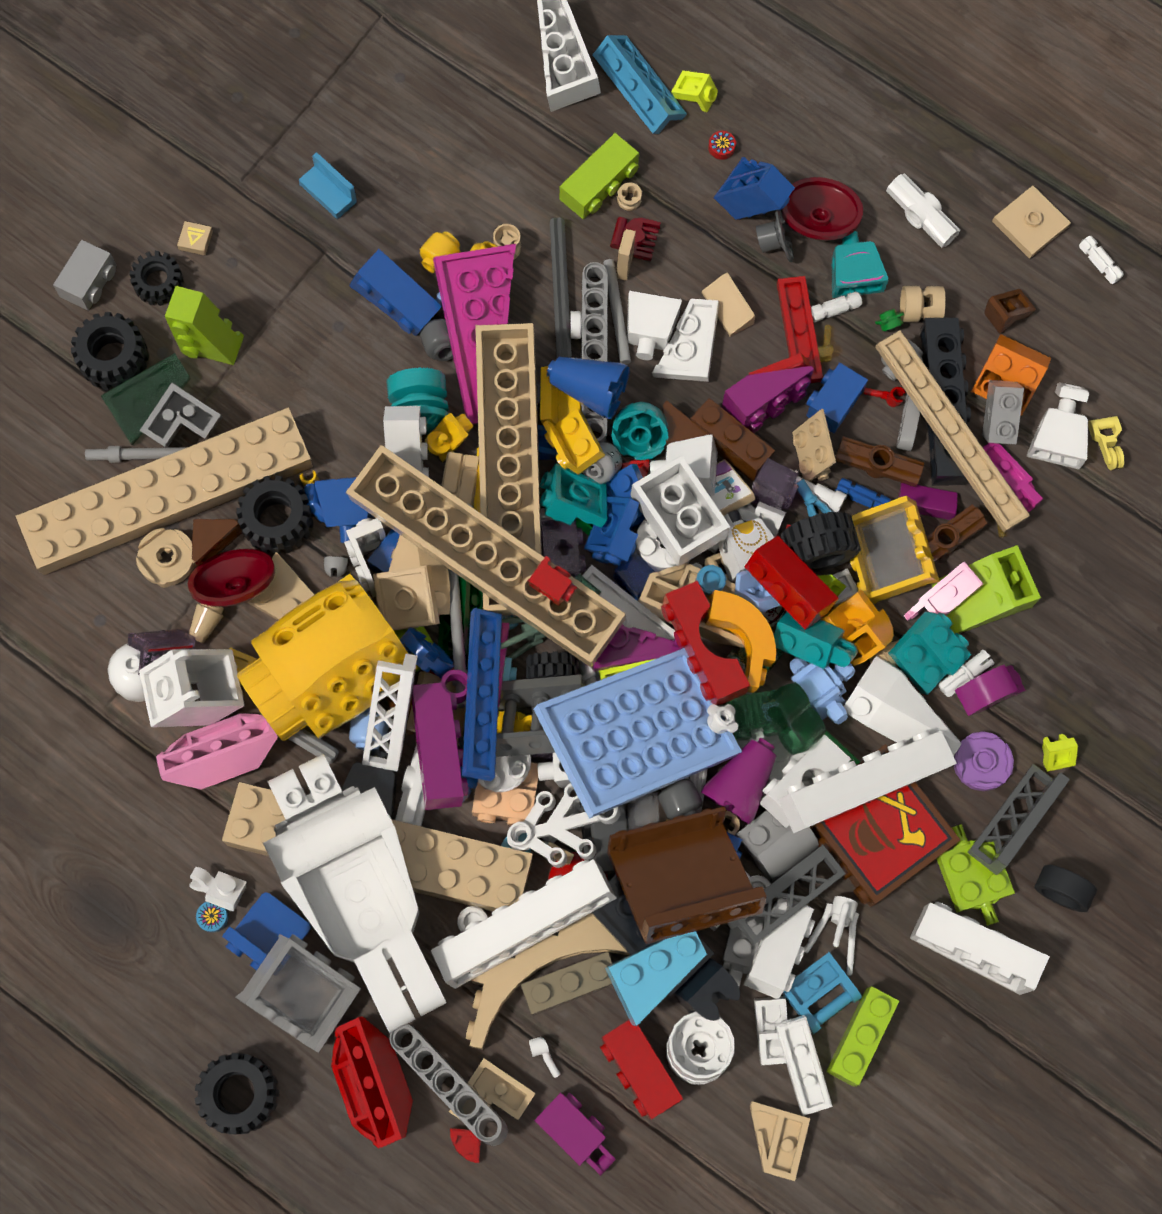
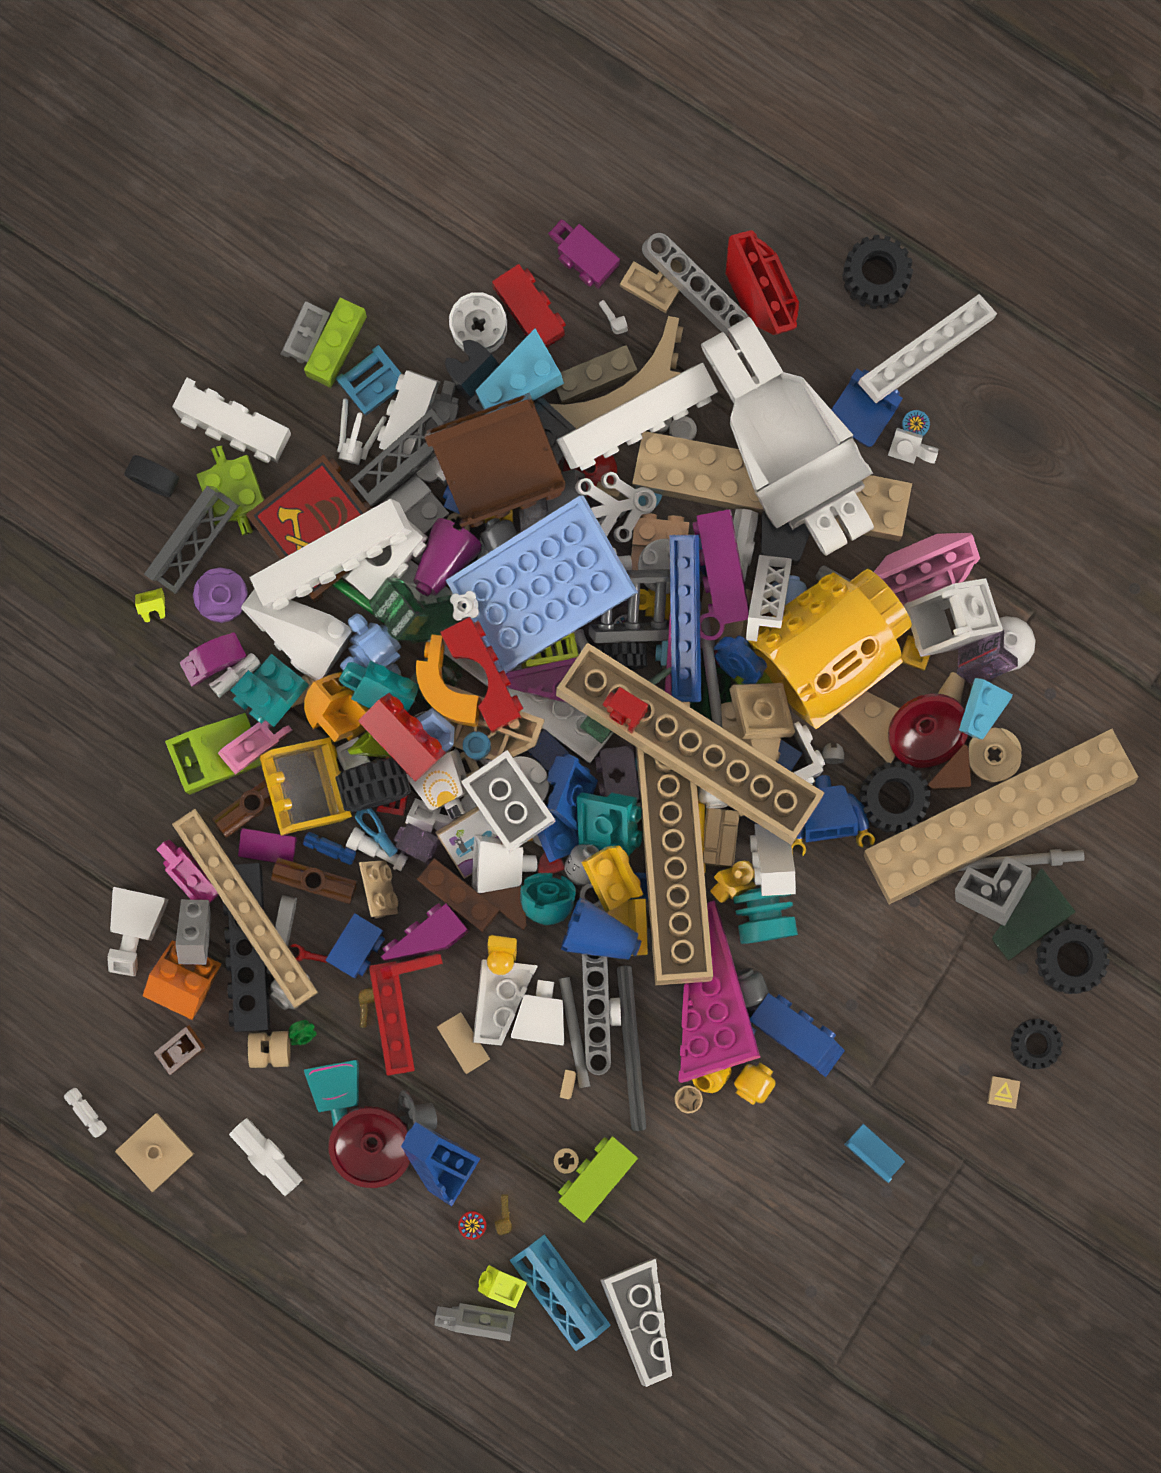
camera: 175 degrees left, 10 degrees up
(85, 275) = (1106, 1042): light grey brick -> none
(171, 597) = (983, 708): none -> medium azure wing
(187, 995) = (927, 348): none -> white plate
(200, 329) = (981, 980): lime wedge -> none
(300, 992) = (830, 354): window -> none
(466, 1144) = (680, 240): red tile -> none
(636, 224) = (562, 1116): dark red piece -> none
(689, 376) = (501, 954): none -> yellow tile
(691, 142) = (504, 1225): none -> clear yellow hand
(718, 60) = (476, 1321): none -> light grey hinge
(767, 1014) = (413, 345): white slope -> none
(779, 1139) = (407, 256): tan wing -> none
(803, 1065) = (387, 317): white tile -> none
(836, 306) = (355, 1047): white axle -> none
(897, 1049) = (305, 332): none -> light grey hinge
(1112, 456) = (84, 936): light yellow piece -> none

